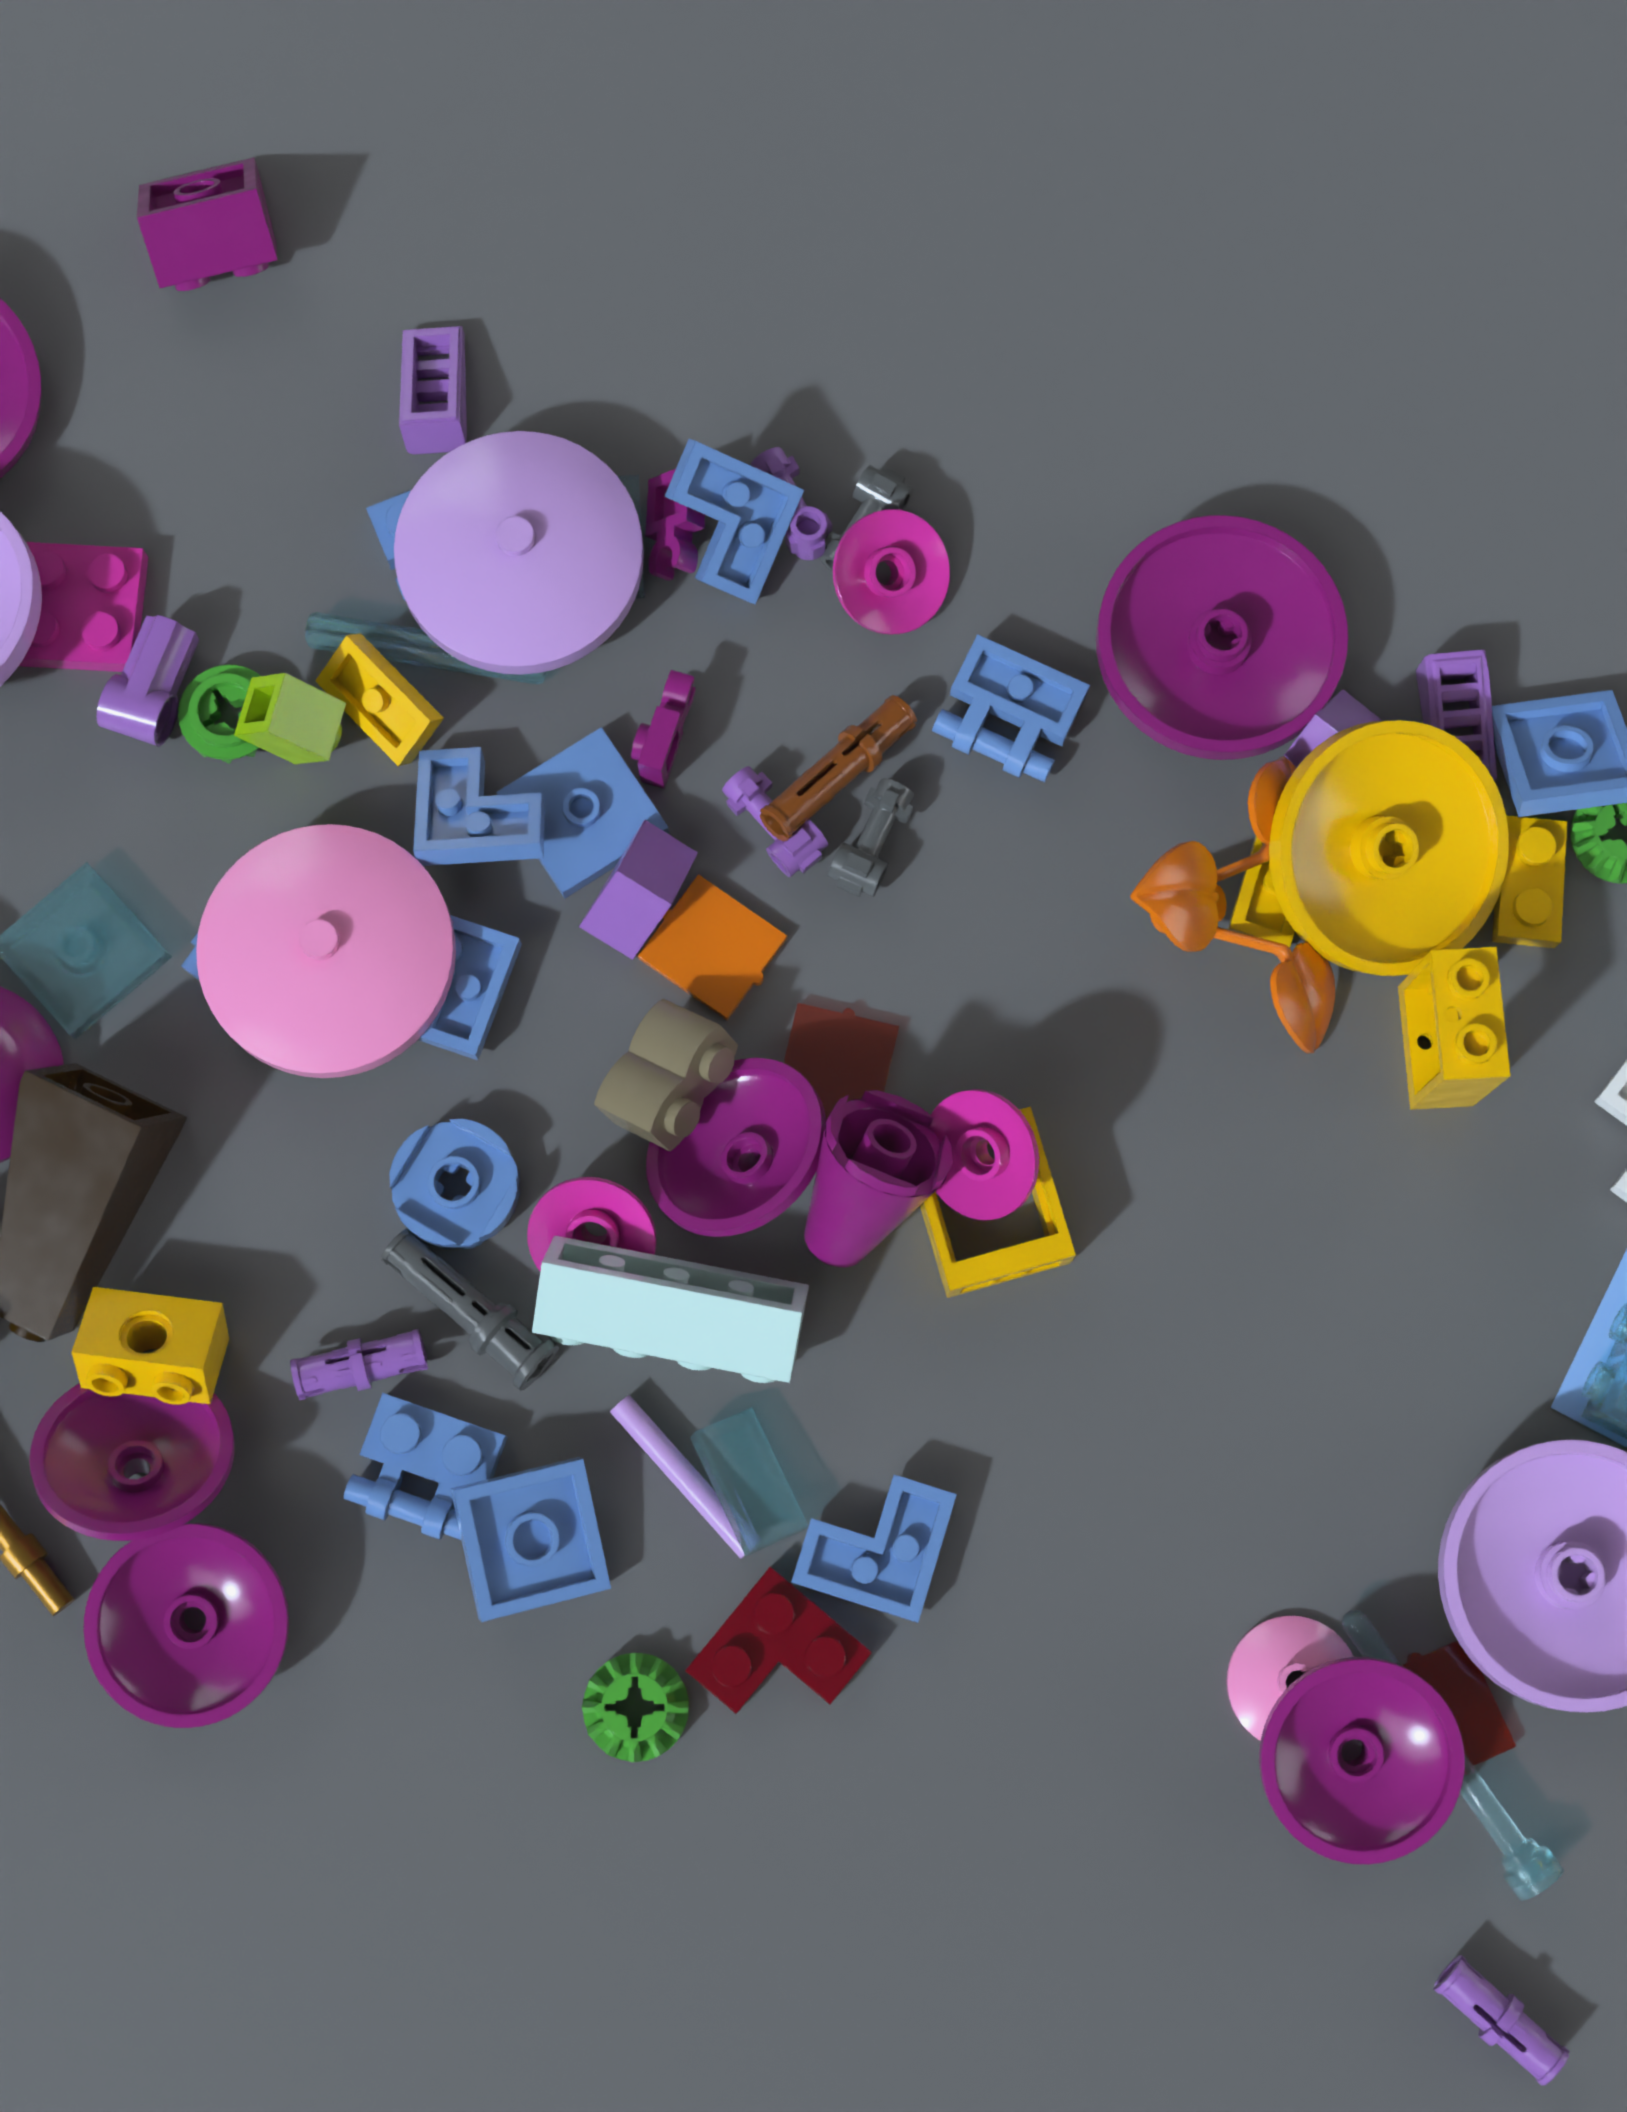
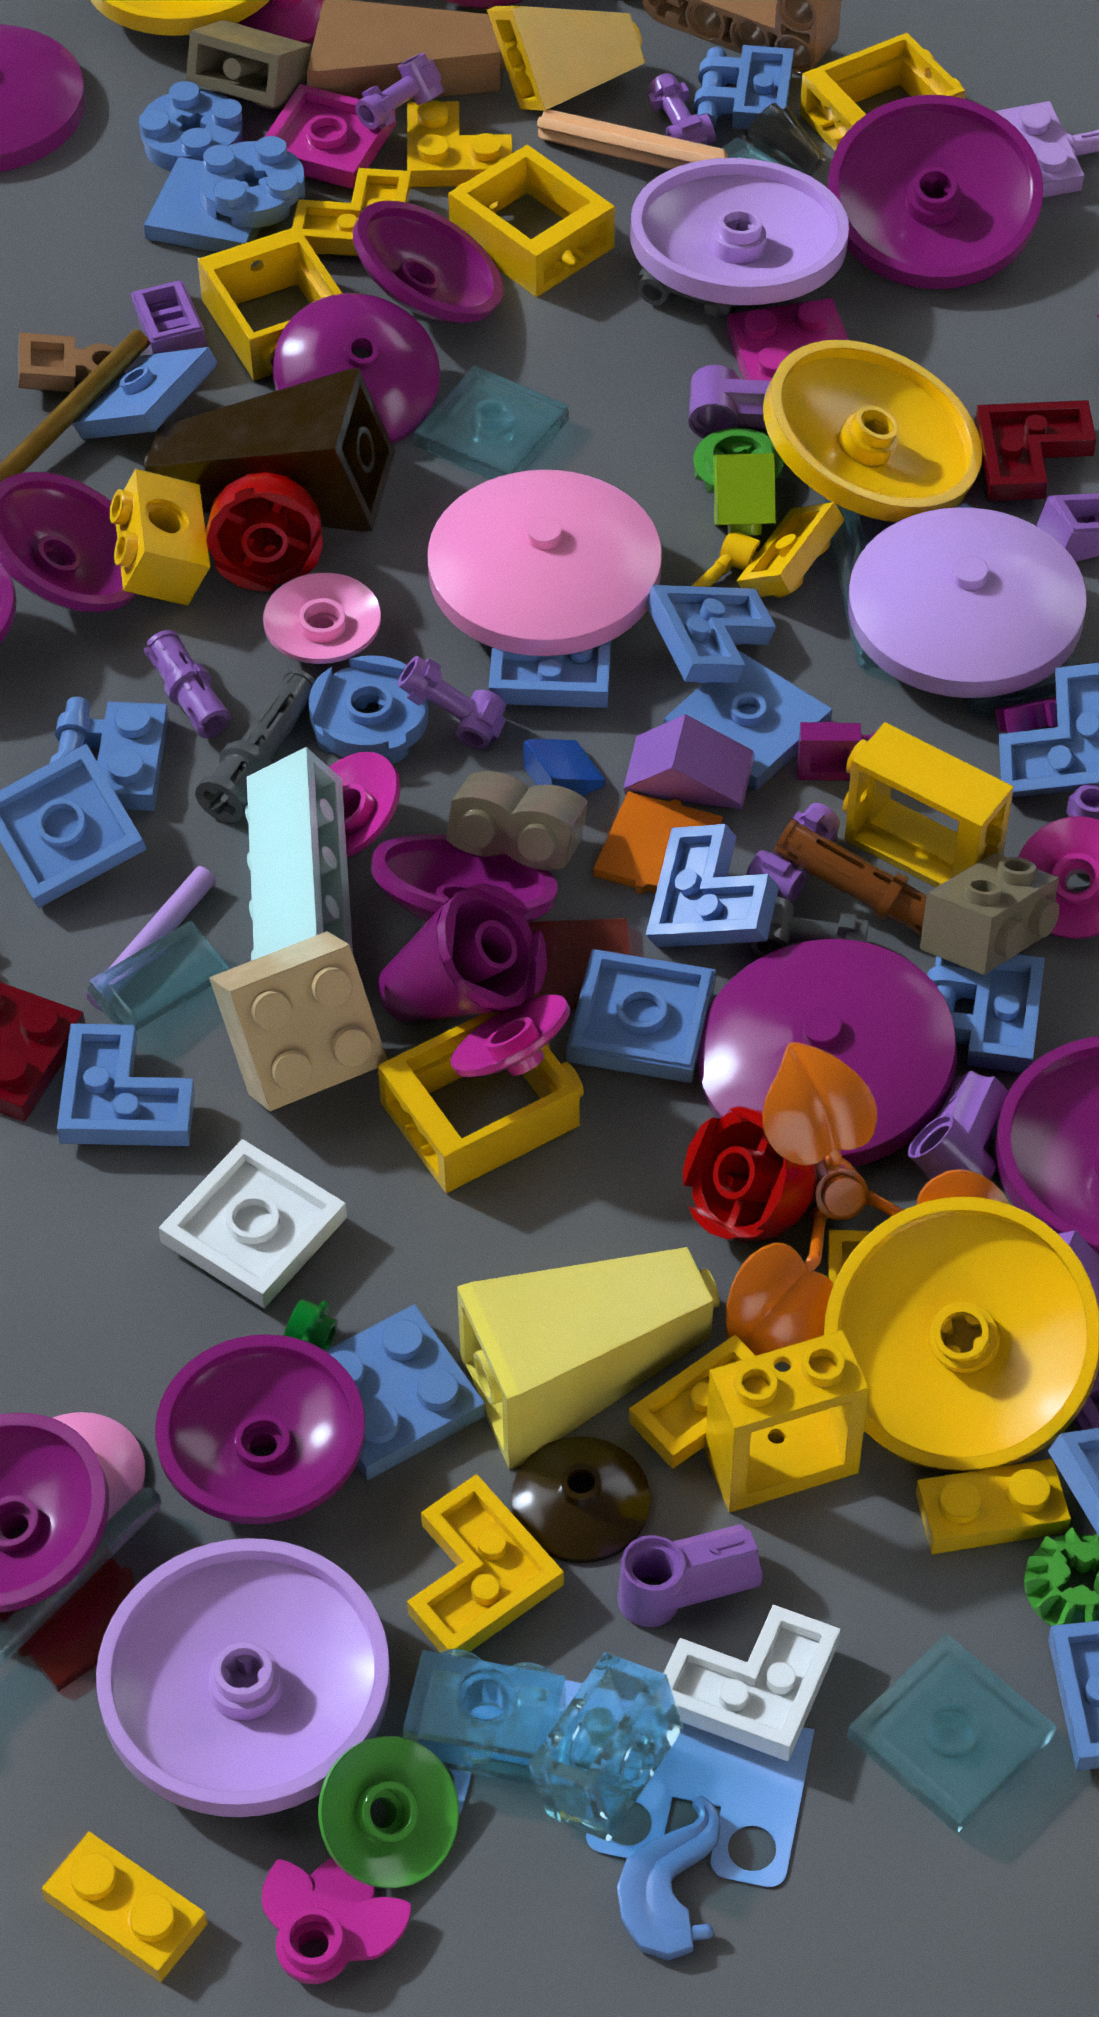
camera: 75 degrees right, 25 degrees down
(182, 1231) = (264, 531): none -> red cylinder
(251, 565) = (871, 430): none -> yellow dish
(293, 429) = (1021, 435): none -> dark red plate
(293, 1182) = (322, 618): none -> bright pink dish
(355, 752) = (736, 551): none -> yellow hand
(501, 1077) = (479, 715): none -> medium lavender bar
(592, 1011) = (561, 764): none -> blue slope
(789, 680) = (936, 780): none -> yellow window
(815, 934) = (699, 901): none -> plate
(879, 1353) = (299, 1020): none -> tan brick
(927, 664) = (990, 913): none -> dark tan brick
(927, 1022) = (641, 1015): none -> medium blue plate
(1026, 866) = (851, 1002): none -> magenta dish
(1072, 1454) = (253, 1223): none -> white plate
(1156, 775) = (962, 1129): none -> medium lavender piece
(1166, 990) = (741, 1181): none -> red cylinder
(1206, 1429) = (311, 1324): none -> green plate
(1283, 1370) = (407, 1389): none -> medium blue plate
(1301, 1188) = (577, 1339): none -> light yellow slope
(1373, 1093) = (676, 1413): none -> yellow plate
(1373, 1494) = (255, 1397): none -> magenta dish
(1405, 1248) = (586, 1524): none -> dark brown dish
(1511, 1326) = (496, 1574): none -> yellow plate
(1546, 1153) = (690, 1572): none -> medium lavender piece

